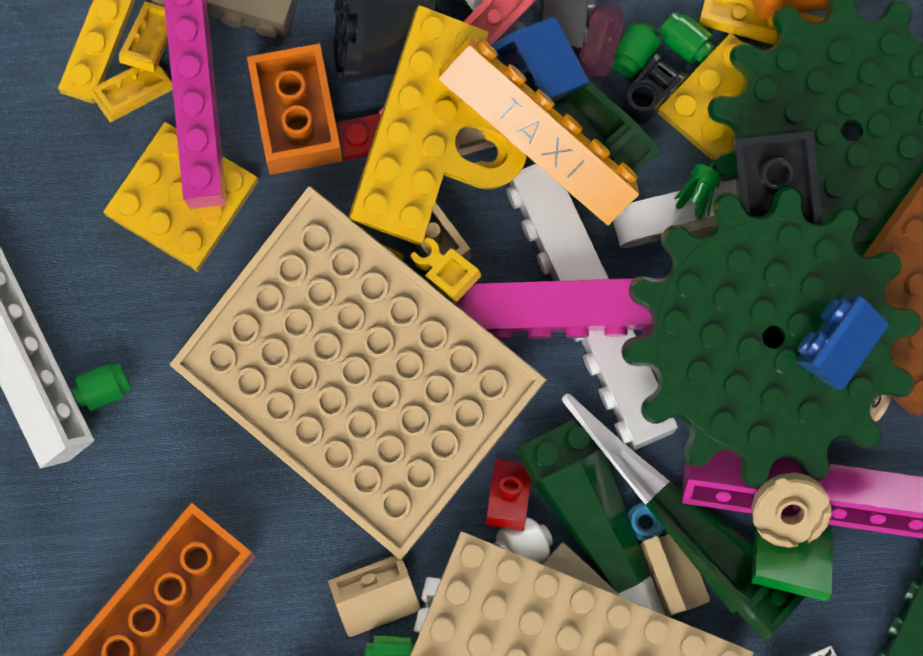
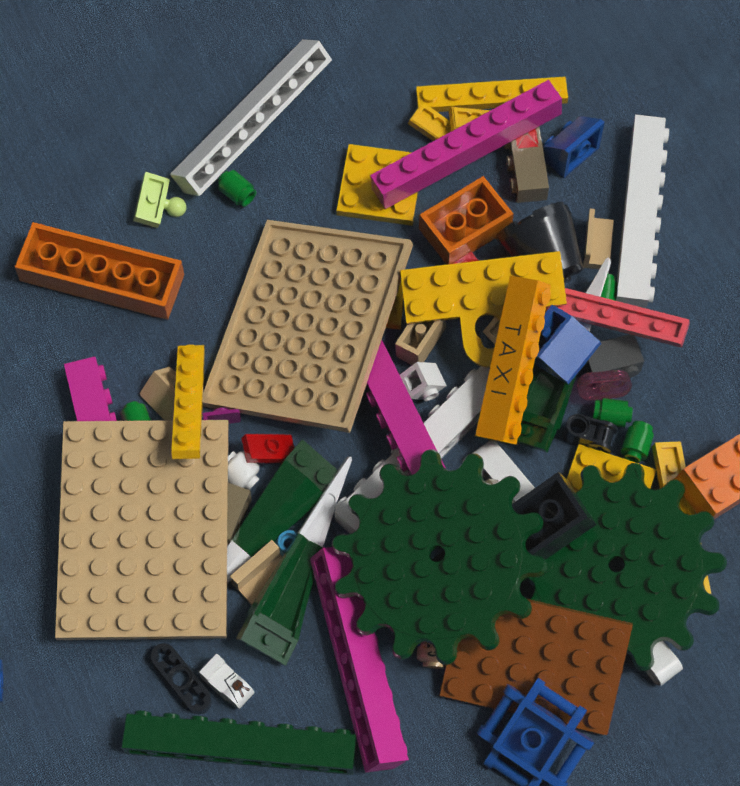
camera: 70 degrees right, 10 degrees down
(66, 506) = (153, 201): none -> yellowish green plate
(412, 574) = (188, 402): none -> yellow plate
(431, 541) = (231, 415): none -> magenta bracket
(447, 273) = (394, 344): yellow plate -> none
(500, 258) = (423, 381): none -> white brick
(701, 189) = (533, 479): green piece -> none
(785, 491) = (343, 620): tan tile -> none
(796, 569) = (302, 642): green tile -> none
(842, 340) = (446, 587): blue slope -> none

